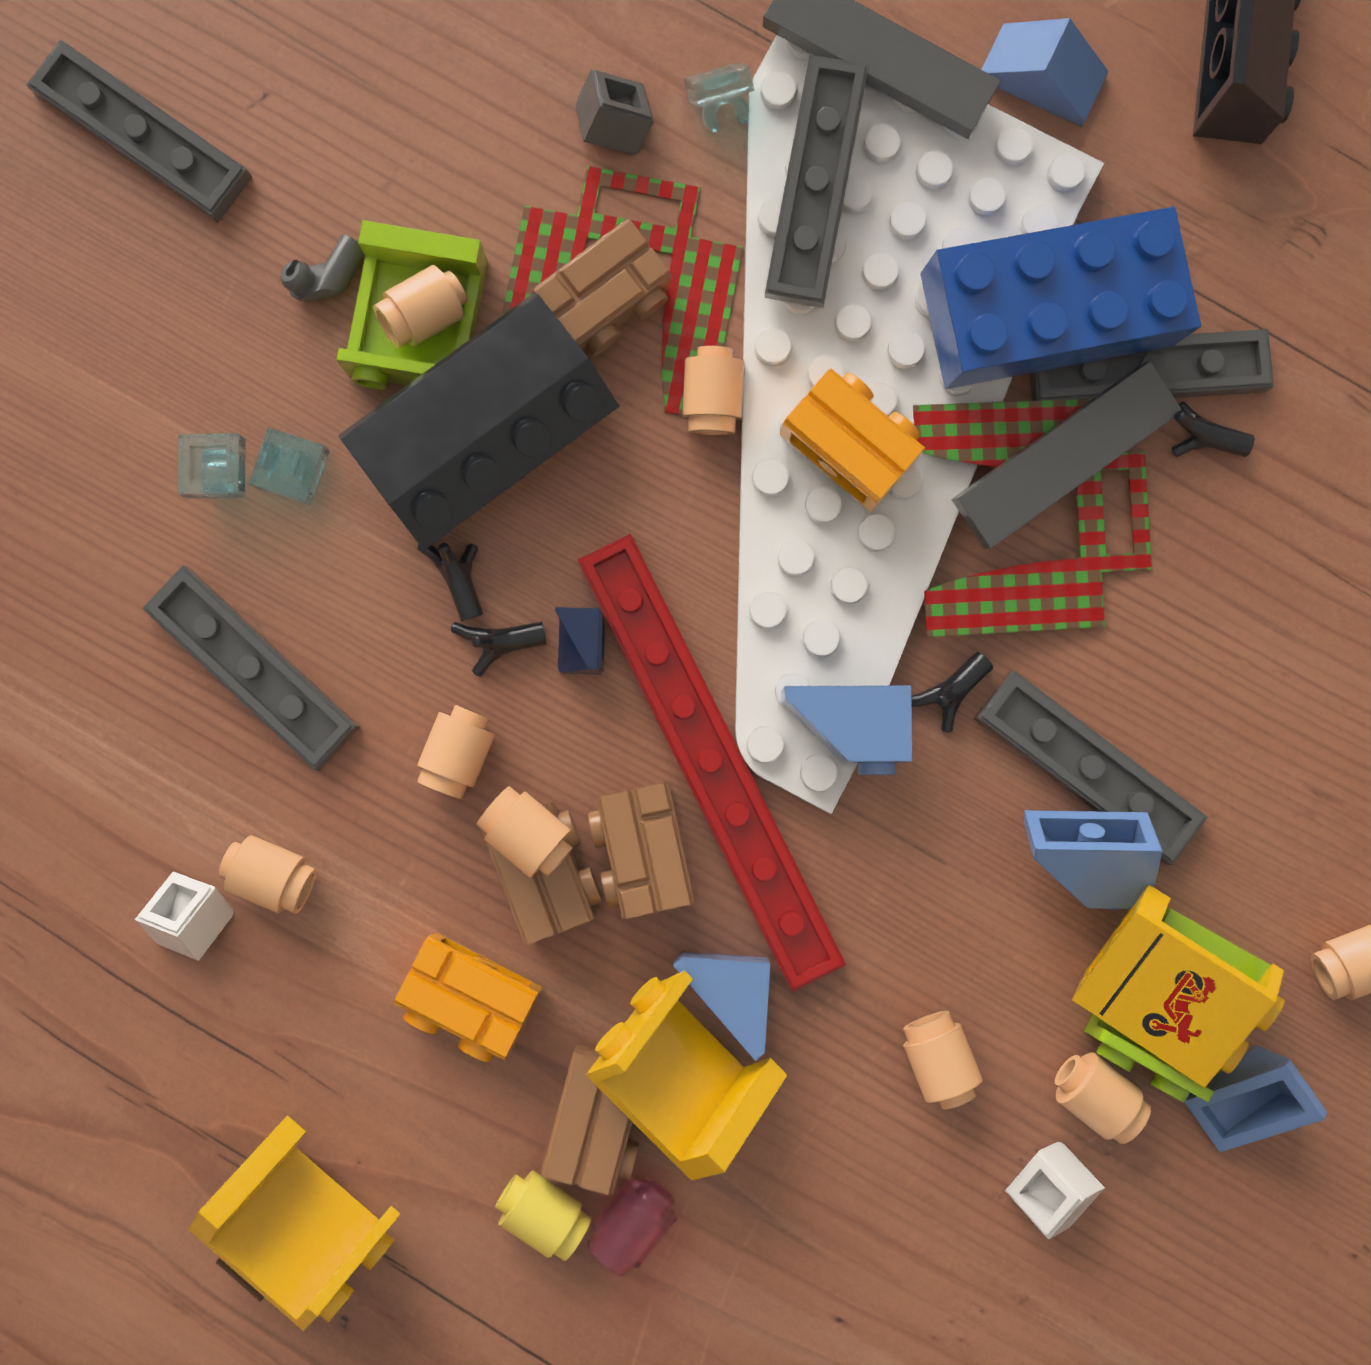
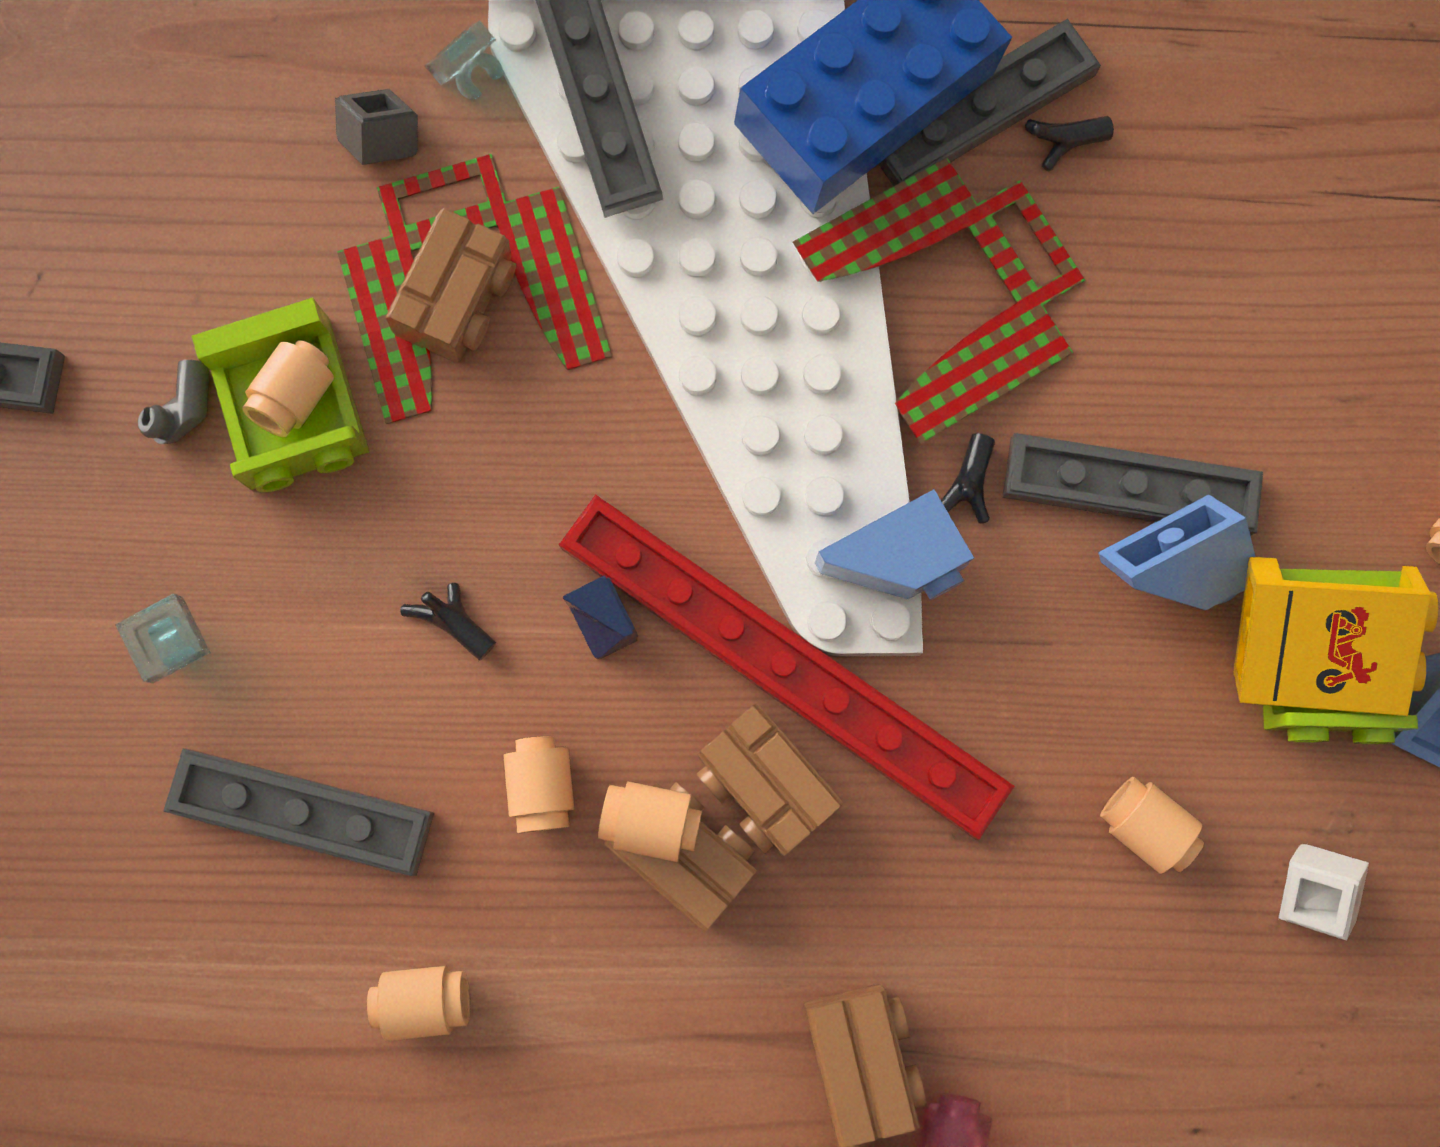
camera: 30 degrees left, 5 degrees down
(185, 915) = (358, 1087): white slope -> none
(289, 466) = (238, 602): clear light blue tile -> none
(467, 998) = (675, 1015): light orange brick -> none
(479, 420) = (399, 461): black slope -> none
(500, 641) = (526, 659): black bar -> none
(682, 1081) = (926, 981): yellow panel -> none
(713, 391) = (602, 325): light nougat brick -> none
(734, 991) = (928, 867): medium blue slope -> none
(853, 438) = (754, 297): light orange brick -> none
(1066, 455) = (954, 217): dark grey tile -> none
(1102, 1098) = (1318, 780): light nougat brick -> none

